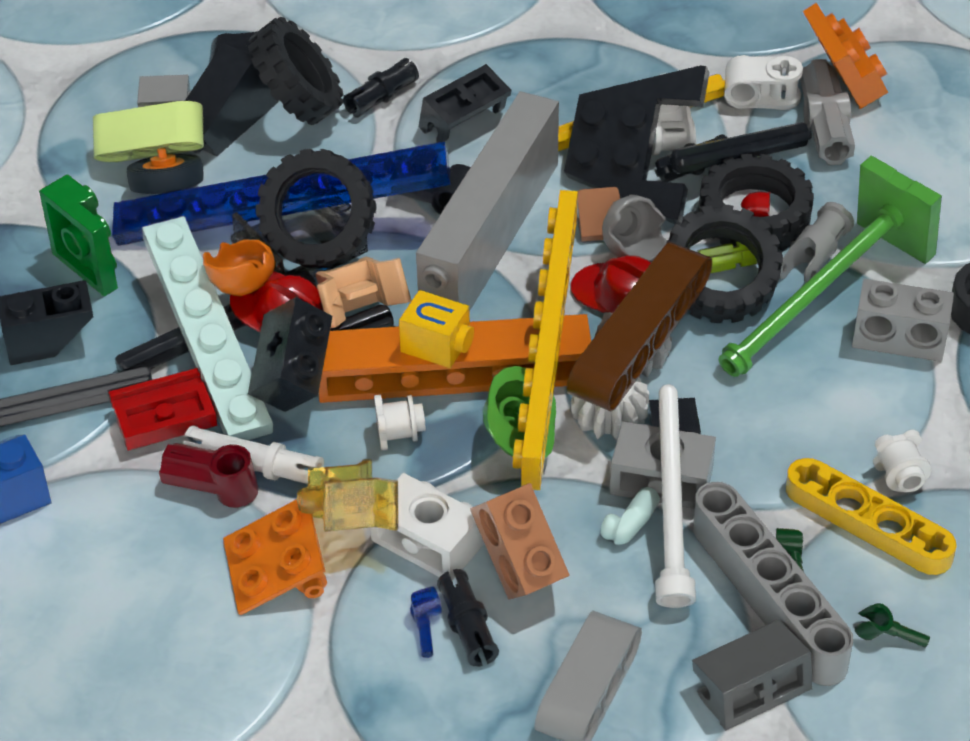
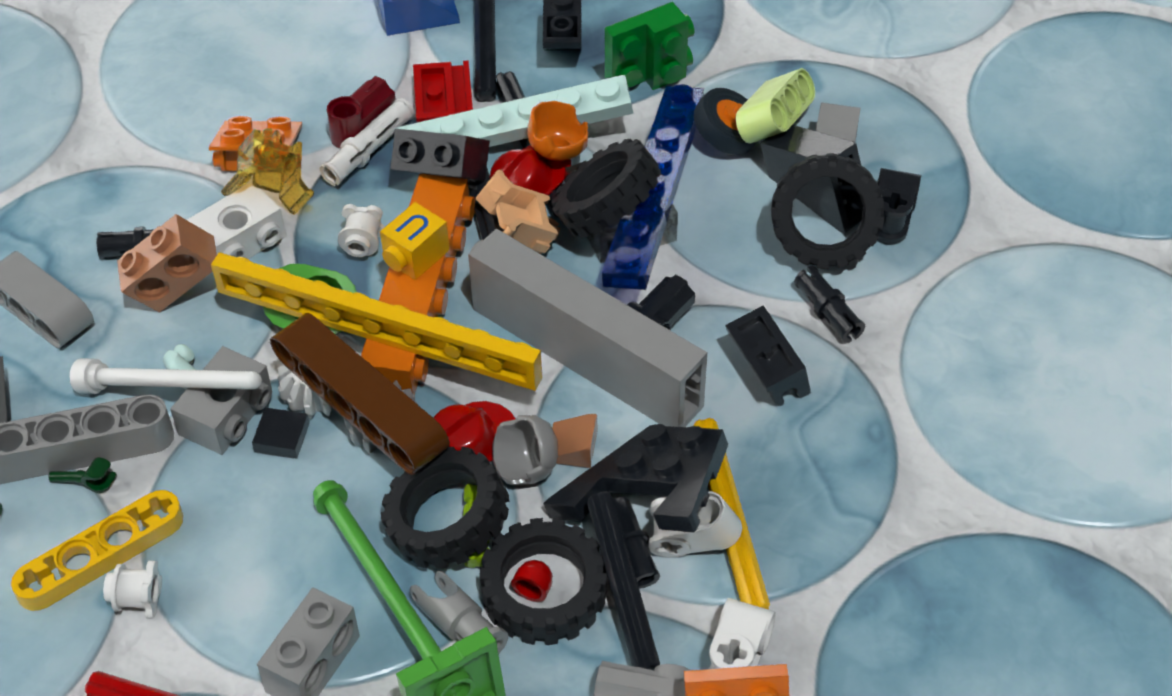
camera: 105 degrees right, 5 degrees up
(425, 604) = (163, 214): clear blue hand -> none

